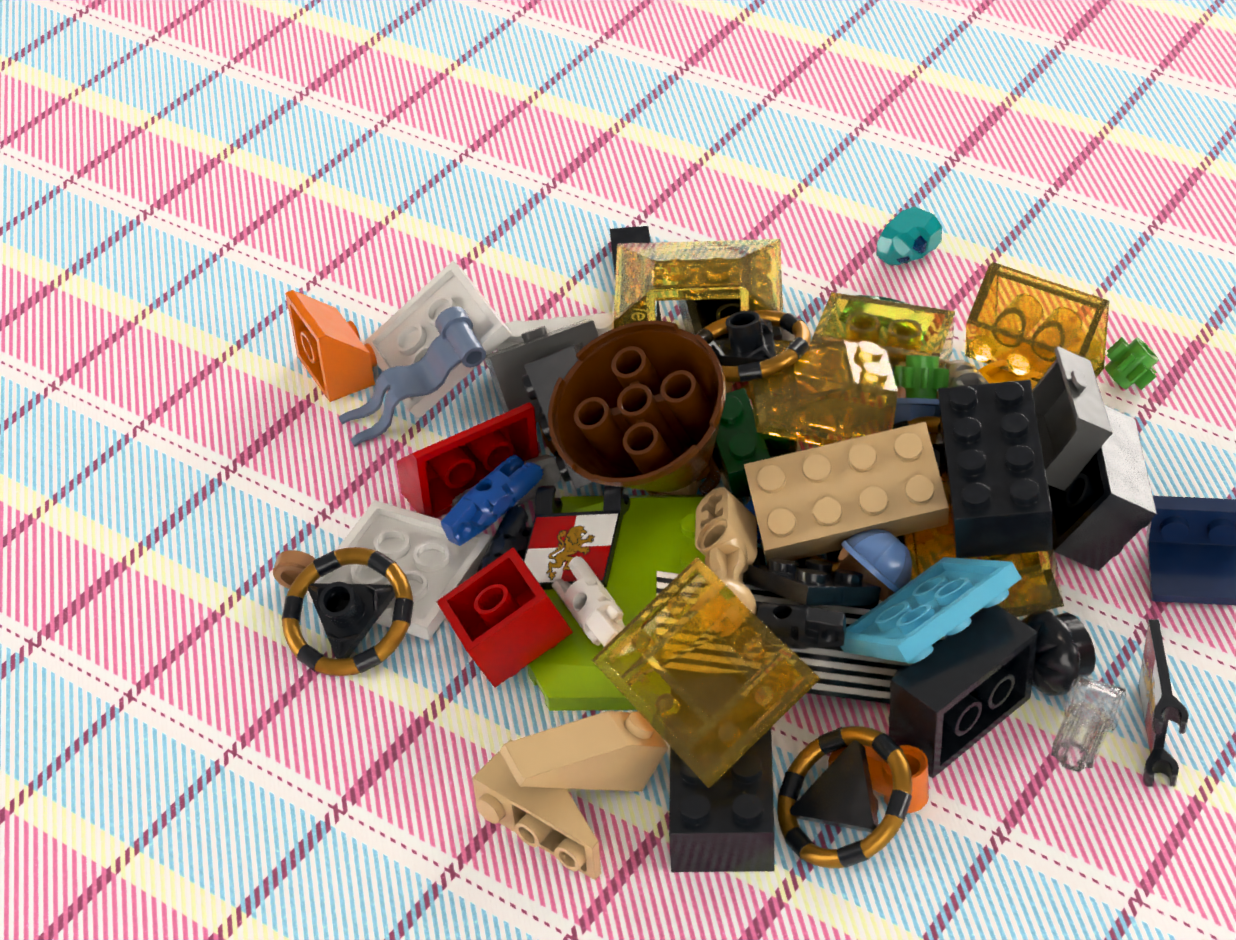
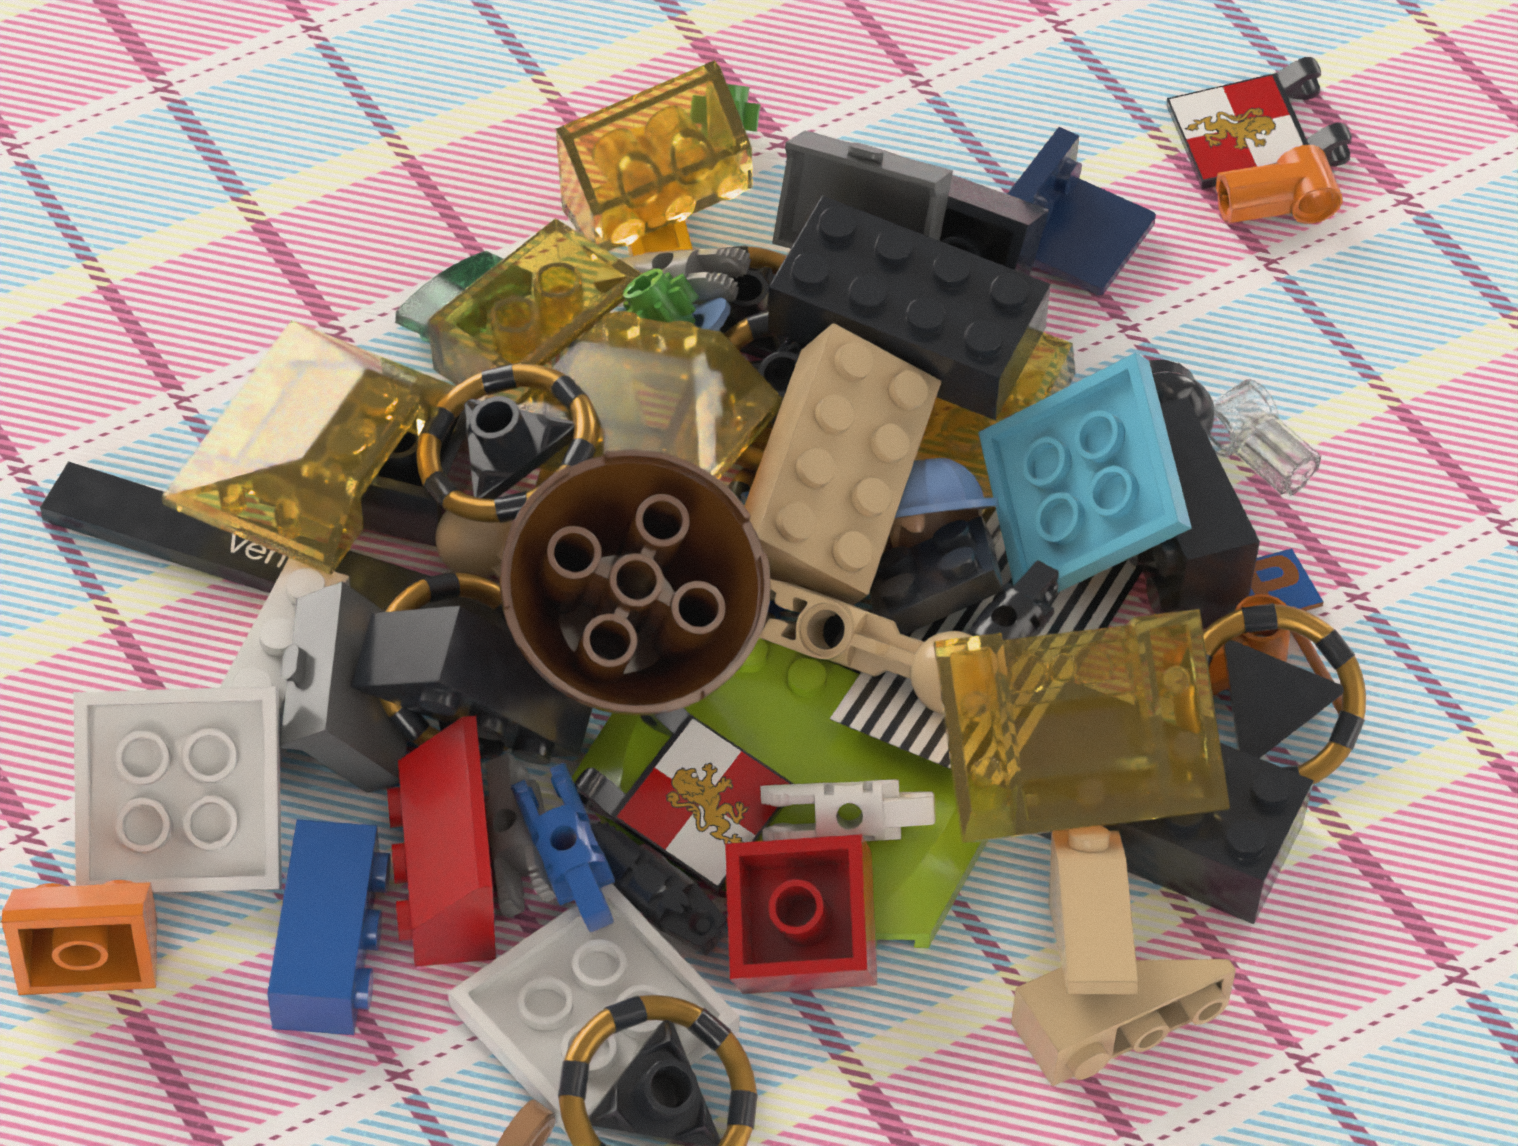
camera: 70 degrees left, 10 degrees up
(373, 440) = (327, 927): none -> blue brick
(453, 345) = (251, 830): sand blue flag -> none
(909, 237) = (322, 201): teal rock -> none
(963, 781) = (1286, 579): none -> piece
(1158, 706) = (1295, 358): black flag -> none

